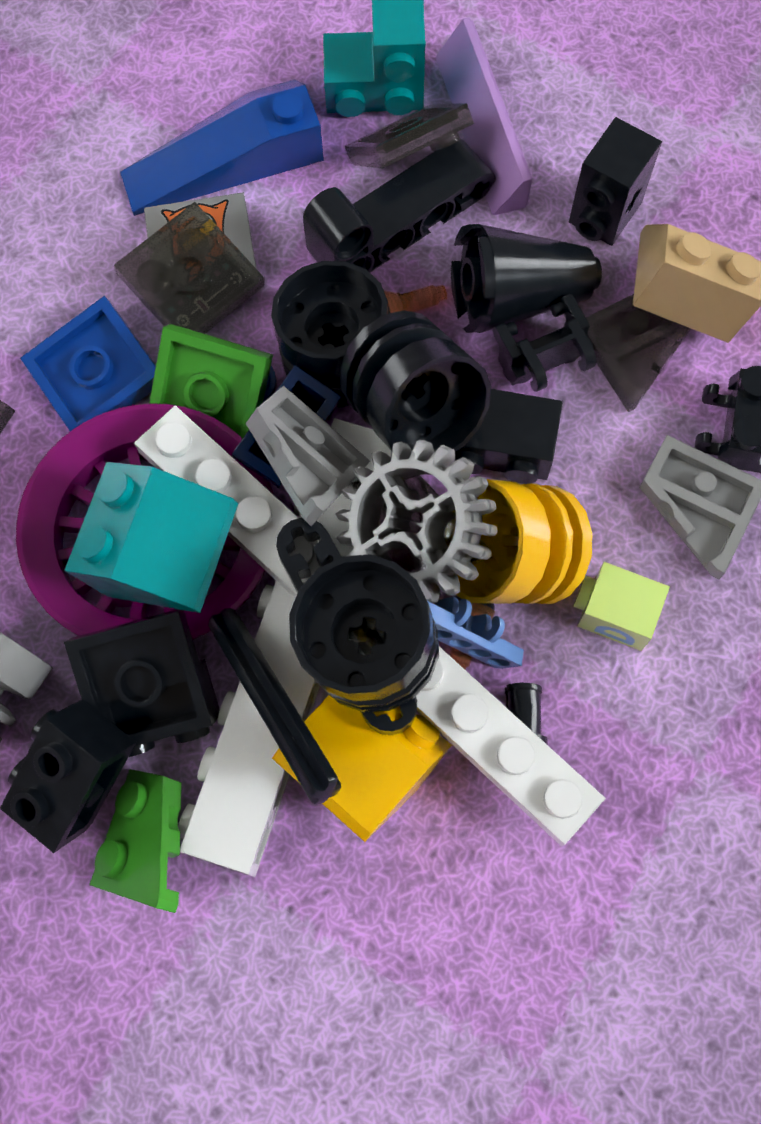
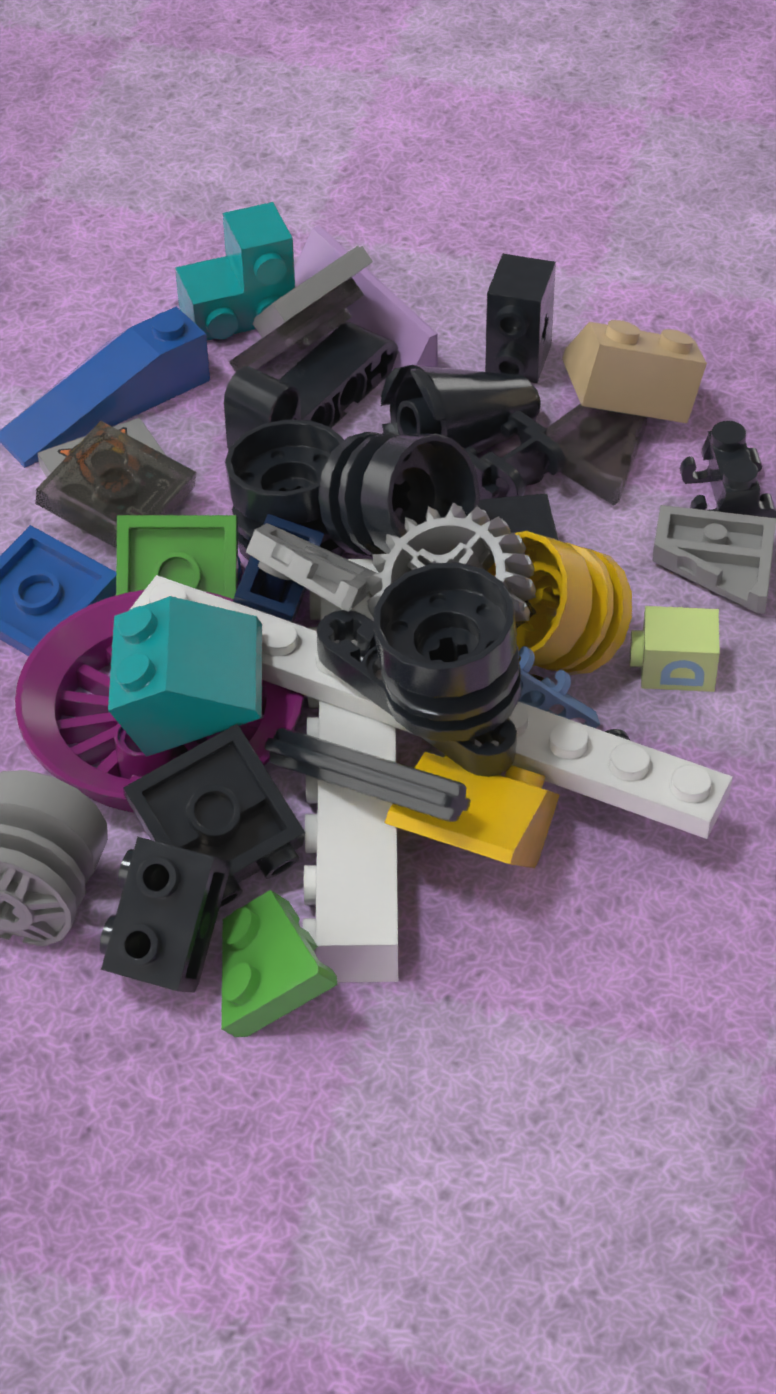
camera: 20 degrees left, 25 degrees down
(429, 105) = (312, 290): none -> light grey tile

